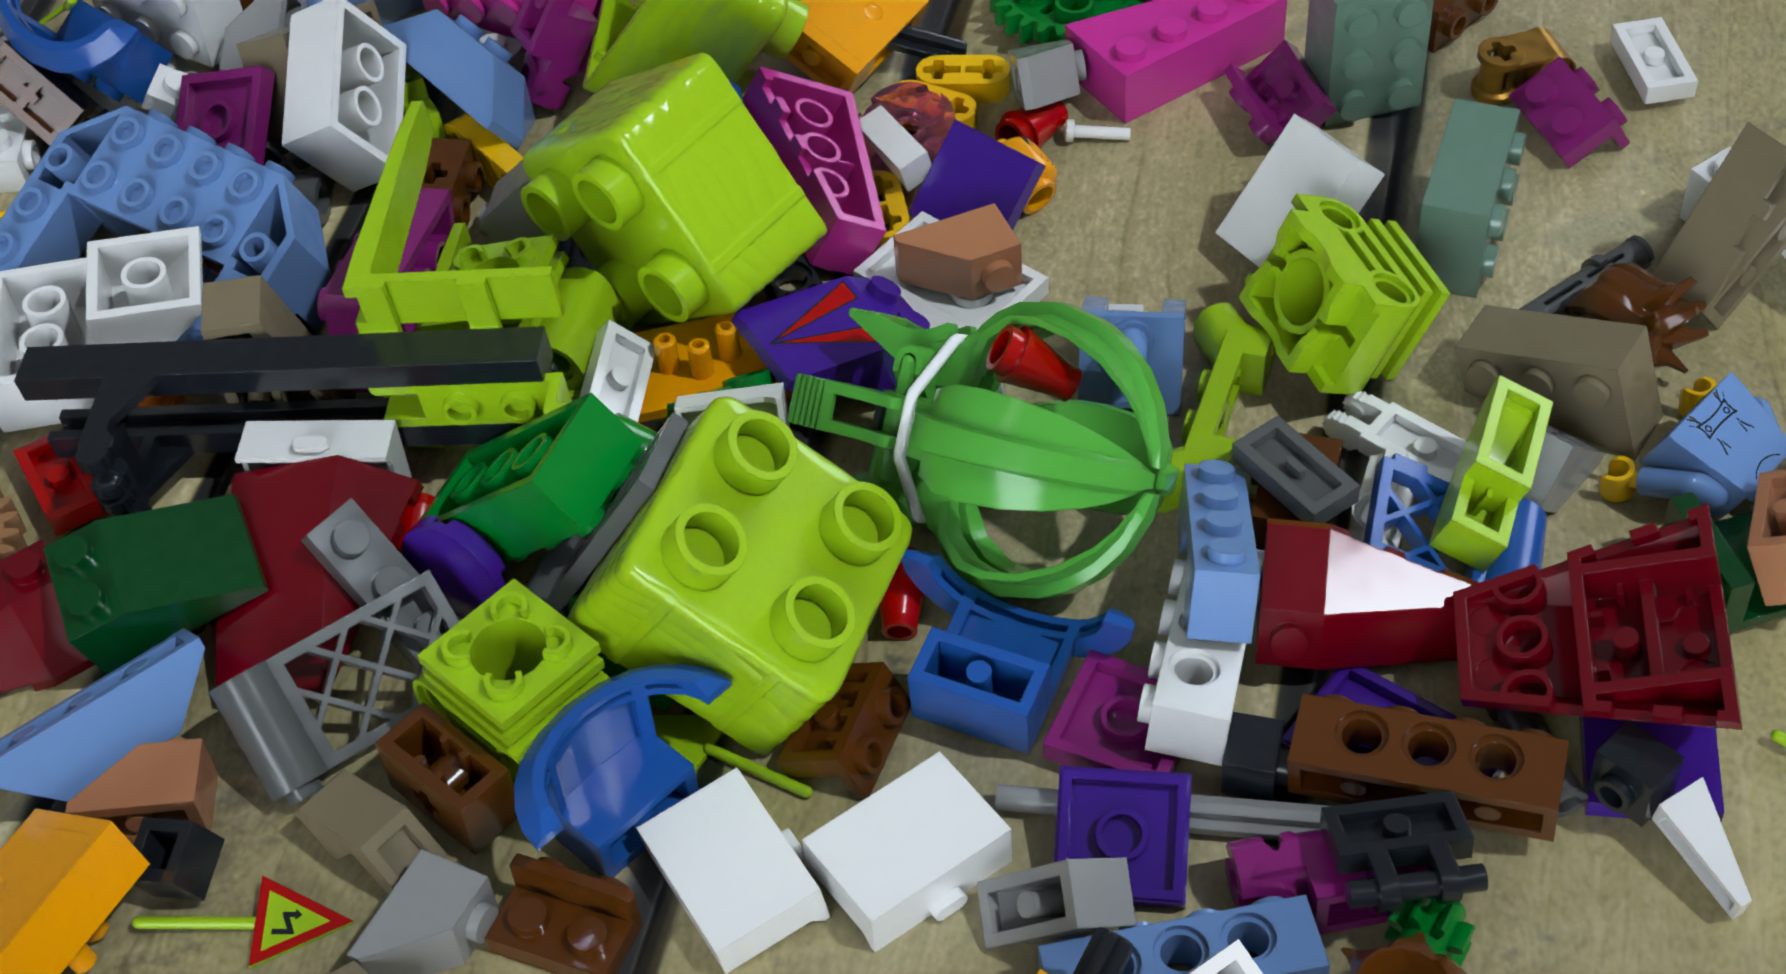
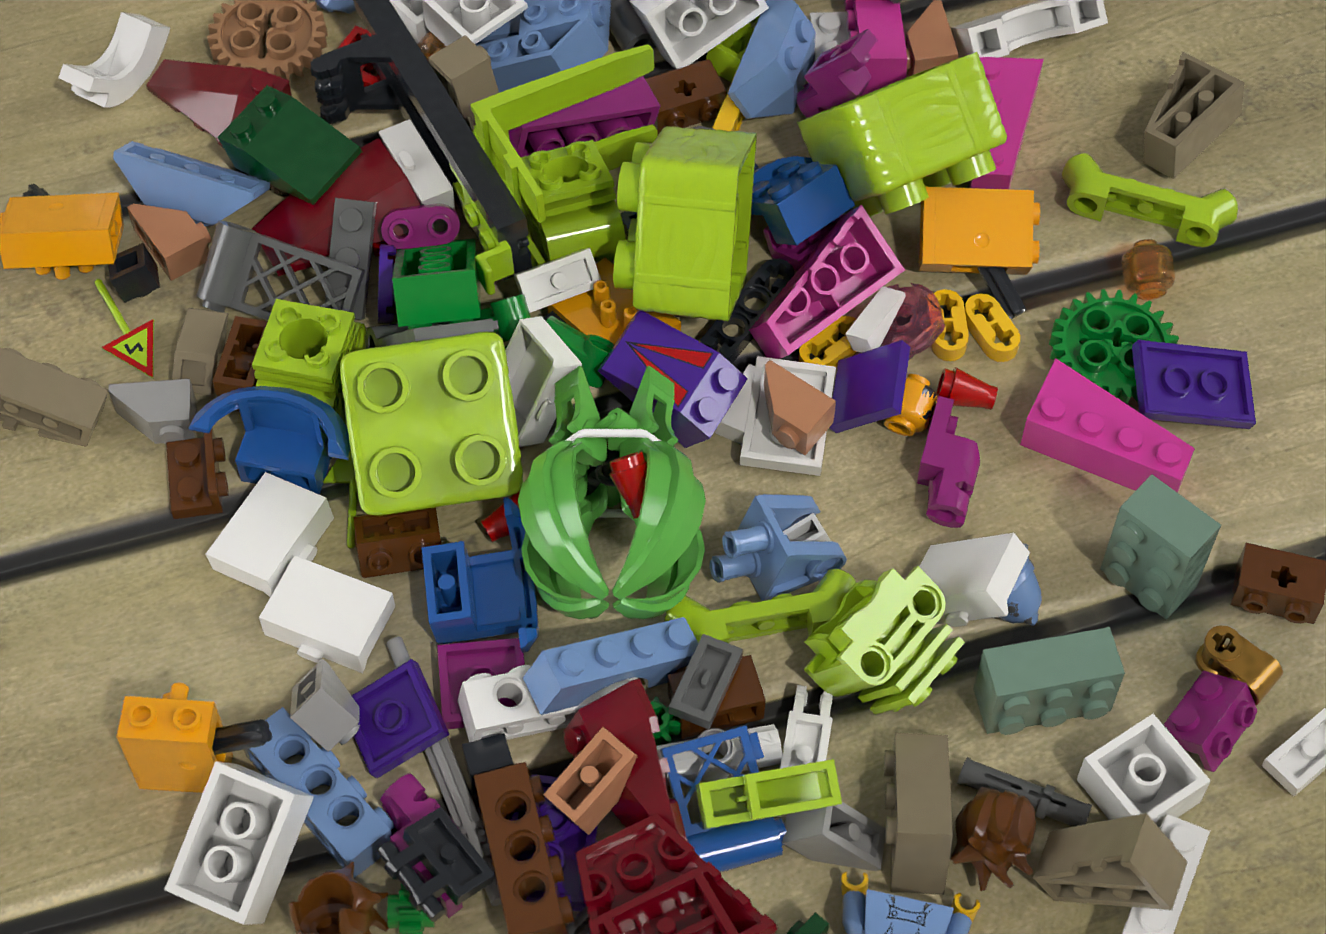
camera: 55 degrees right, 10 degrees up
(414, 479) = (419, 222): none -> magenta plate
(1046, 73) = (1004, 370): light grey slope -> none
(1096, 132) = (983, 416): white piece -> none
(1121, 177) = (948, 468): none -> magenta plate
(1277, 91) = (1084, 524): magenta bracket -> none
(1375, 633) = (593, 781): none -> nougat slope
(1627, 180) = (1143, 774): none -> white brick

